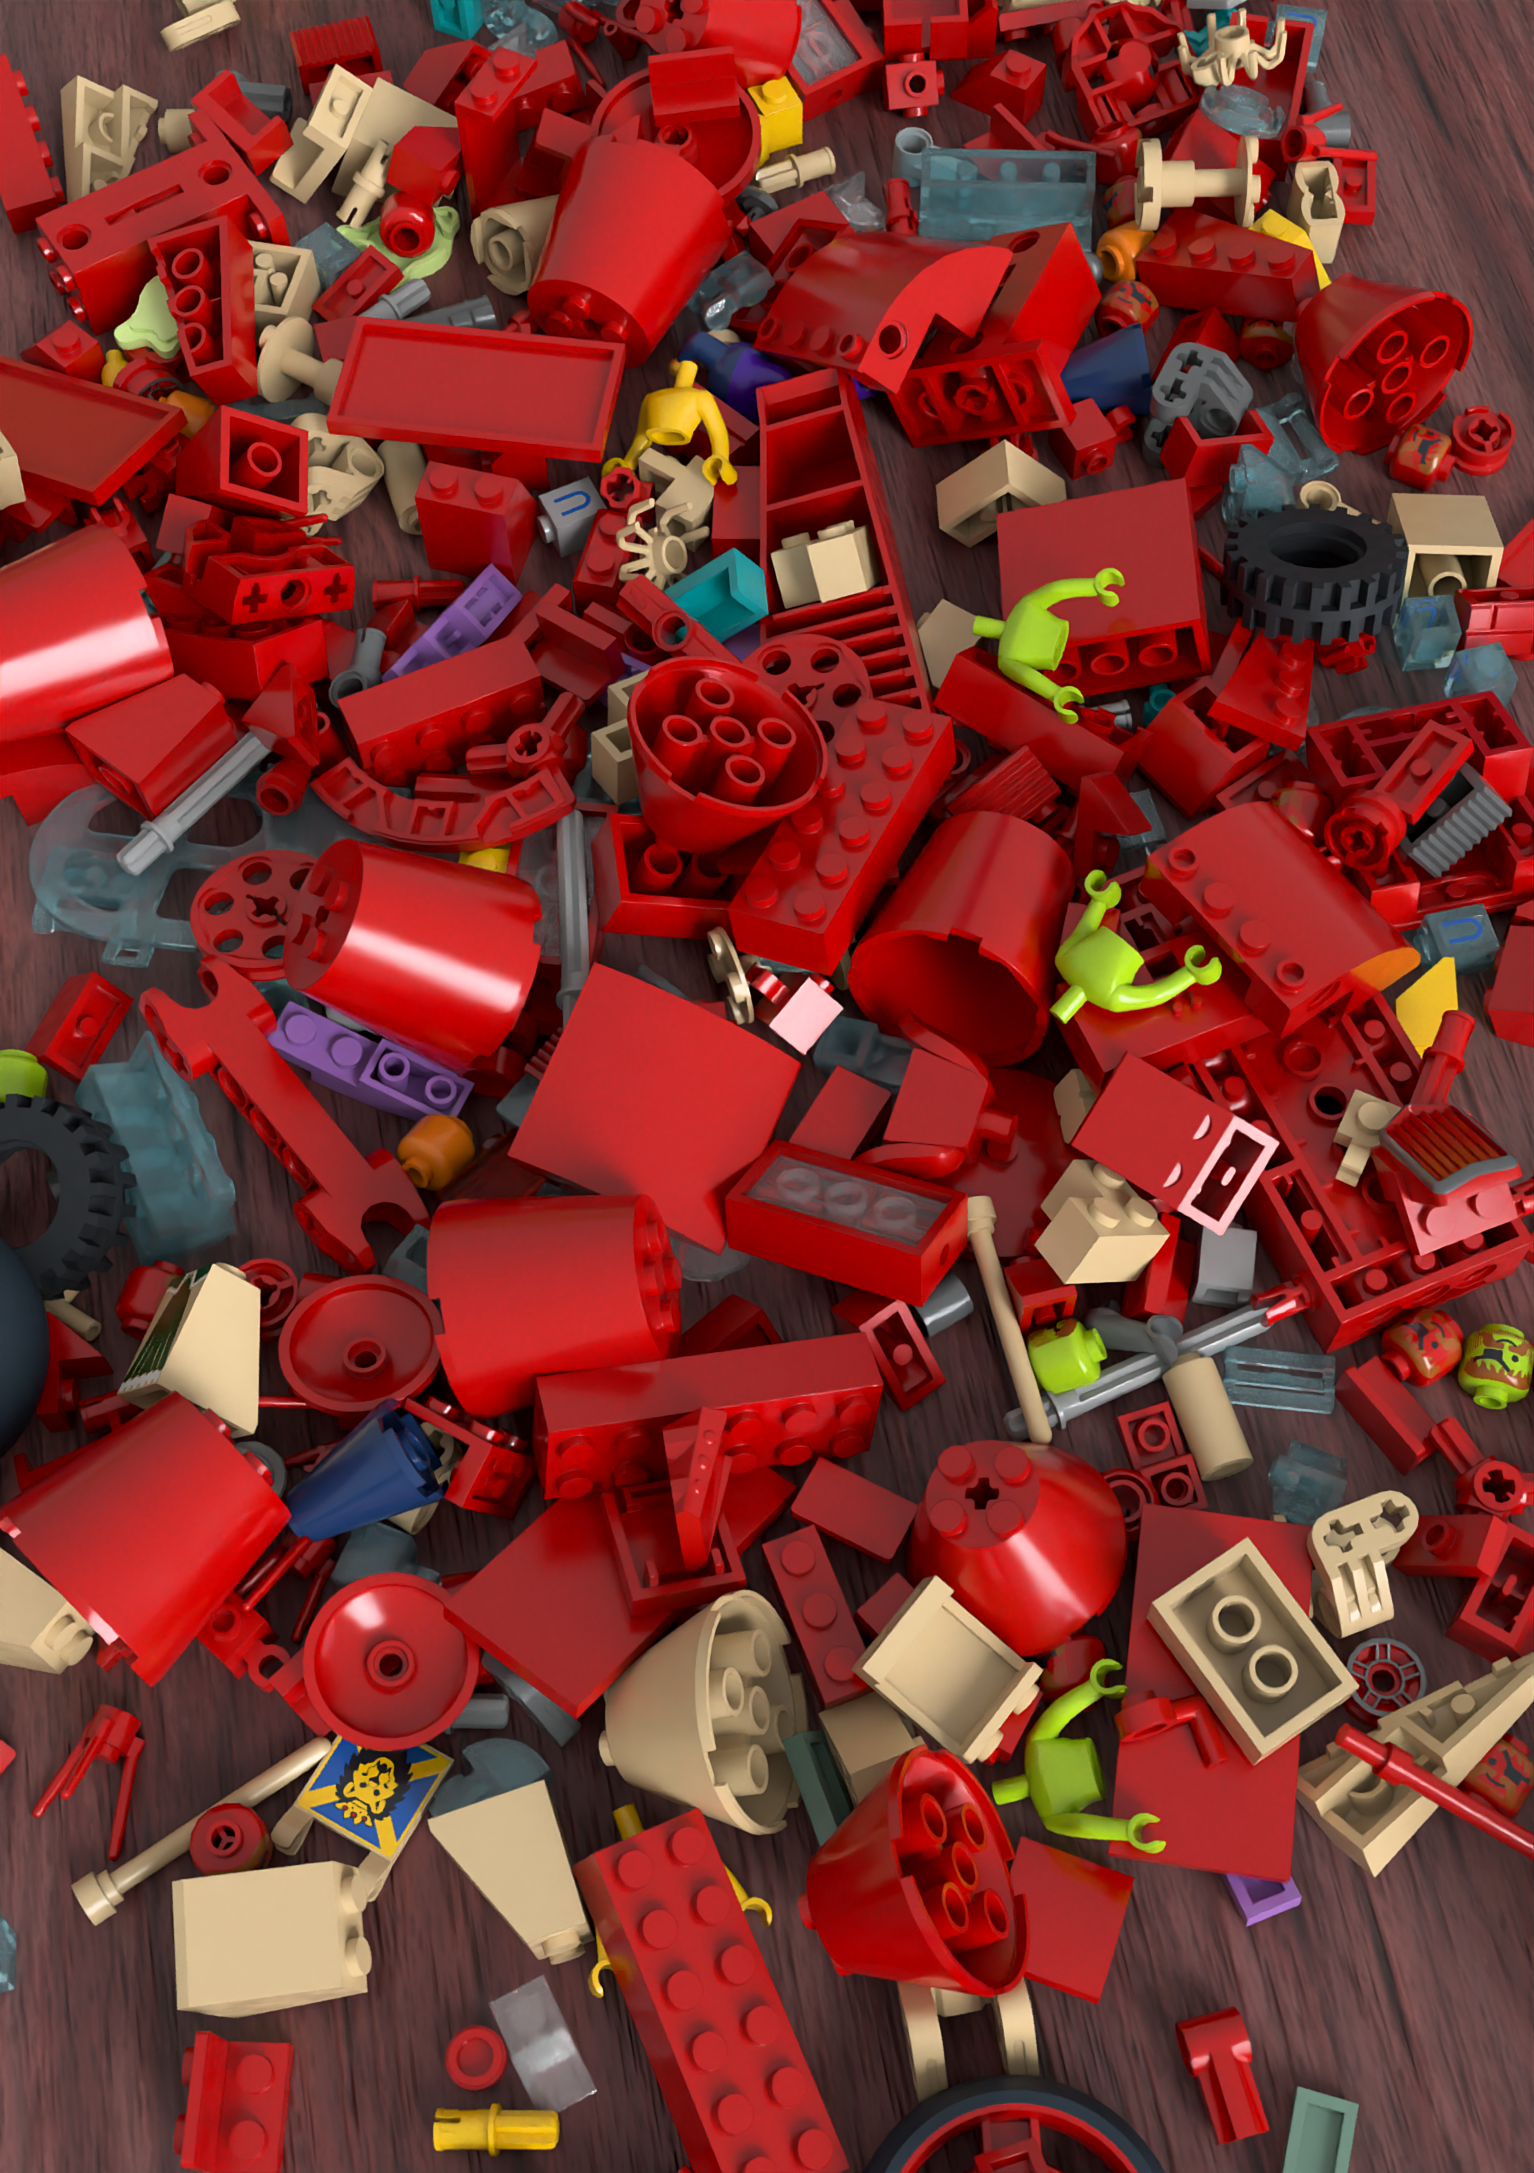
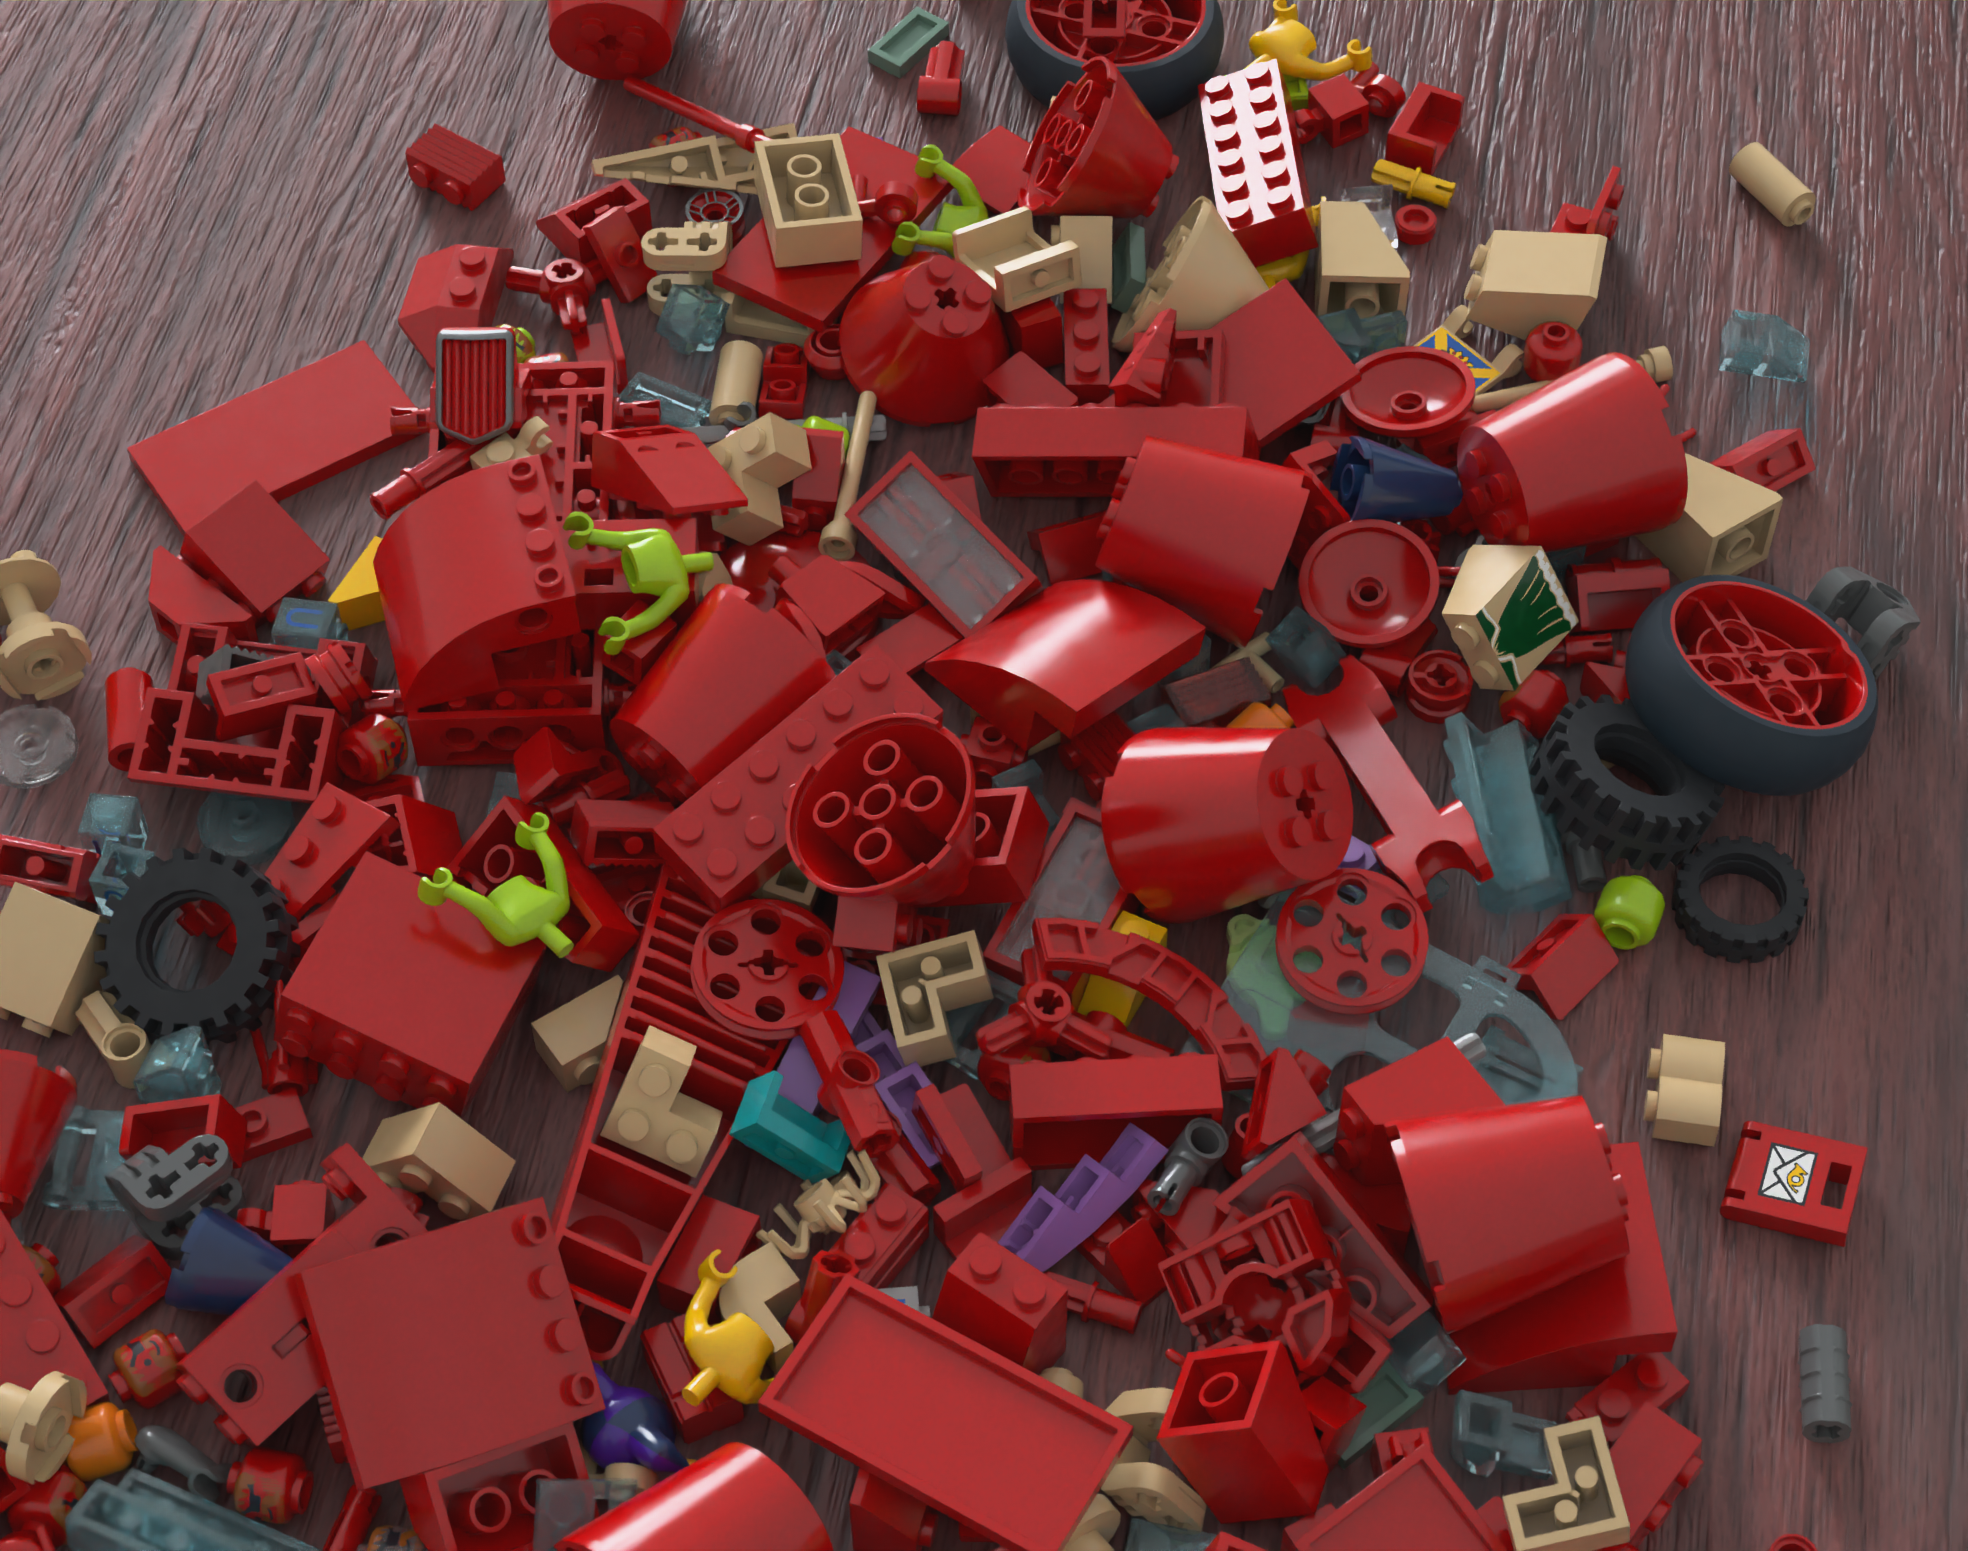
camera: 160 degrees left, 10 degrees down
(572, 911) = (1095, 764): light grey axle -> none

